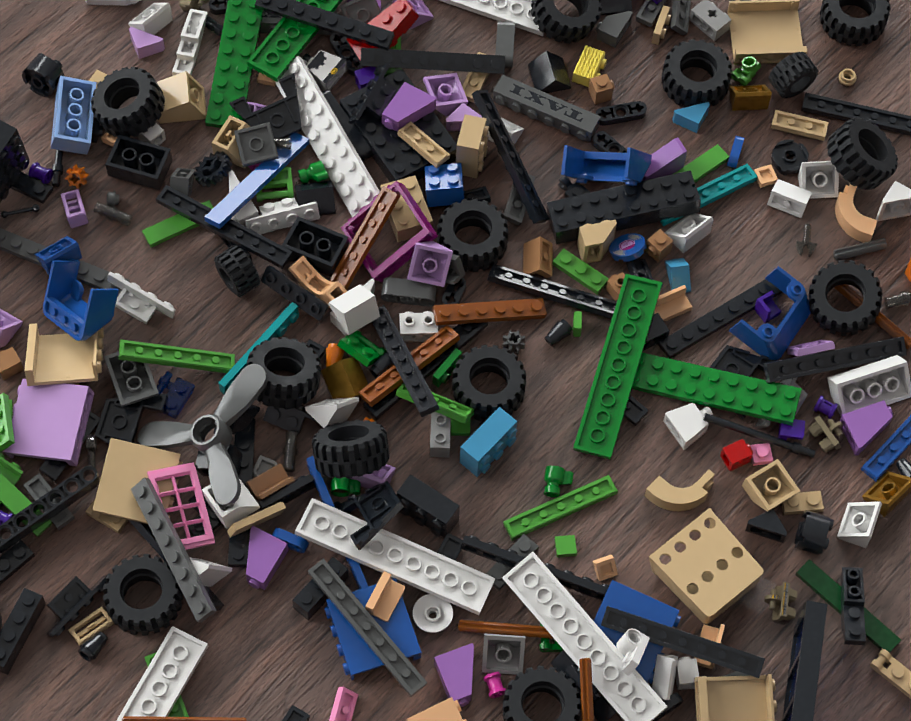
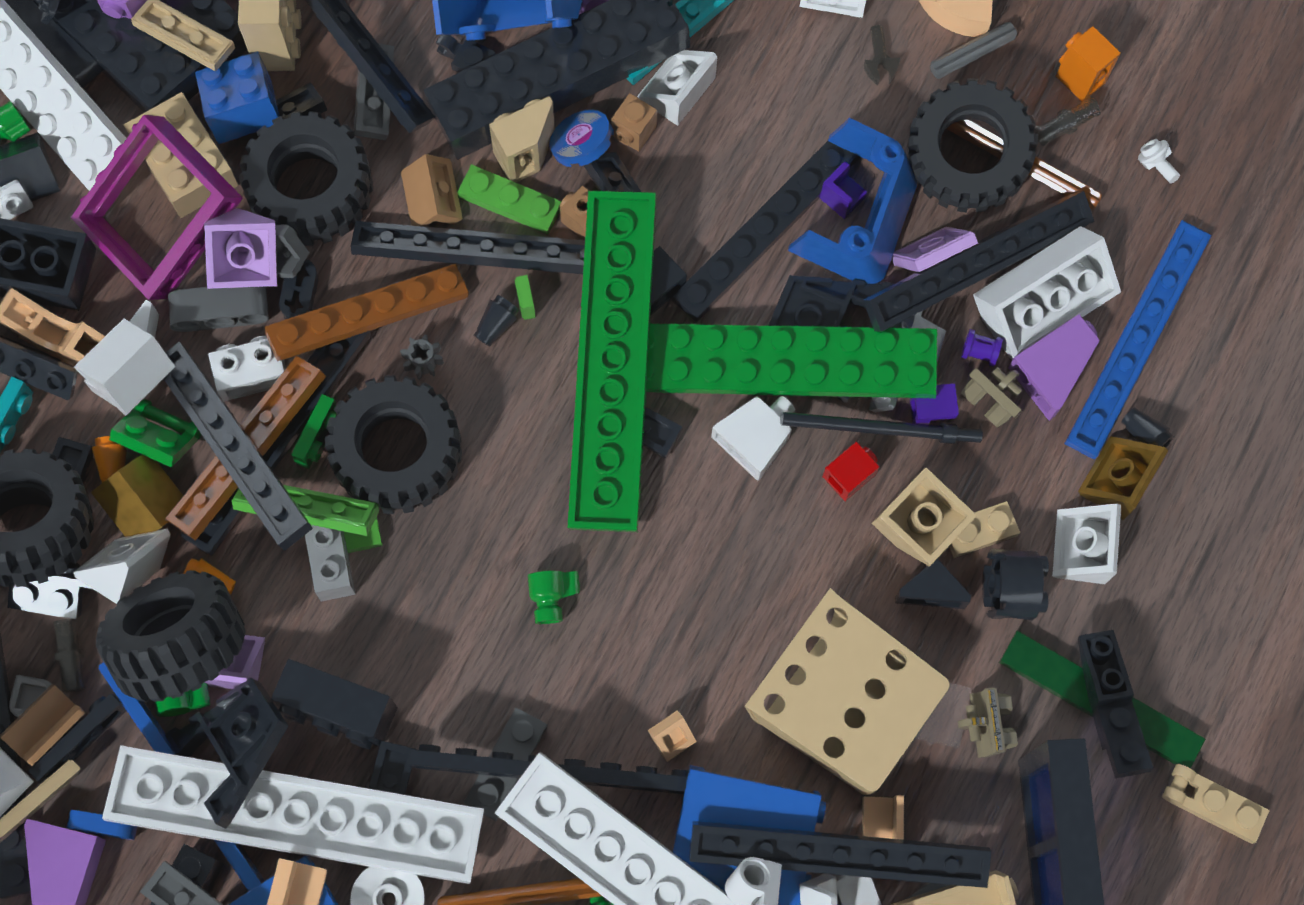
camera: 15 degrees left, 10 degrees up
(365, 237) = (114, 230): dark orange plate -> none
(381, 365) = (196, 457): black brick -> none
(488, 442) = (417, 556): dark azure brick -> none
(560, 507) = (568, 641): bright green tile -> none
(565, 546) = (594, 710): bright green tile -> none
(673, 303) = (681, 222): light nougat panel -> none
(676, 498) = (768, 577): tan arch -> none
(678, 273) = (679, 167): dark azure slope -> none
(761, 454) = (892, 457): bright pink plate -> none

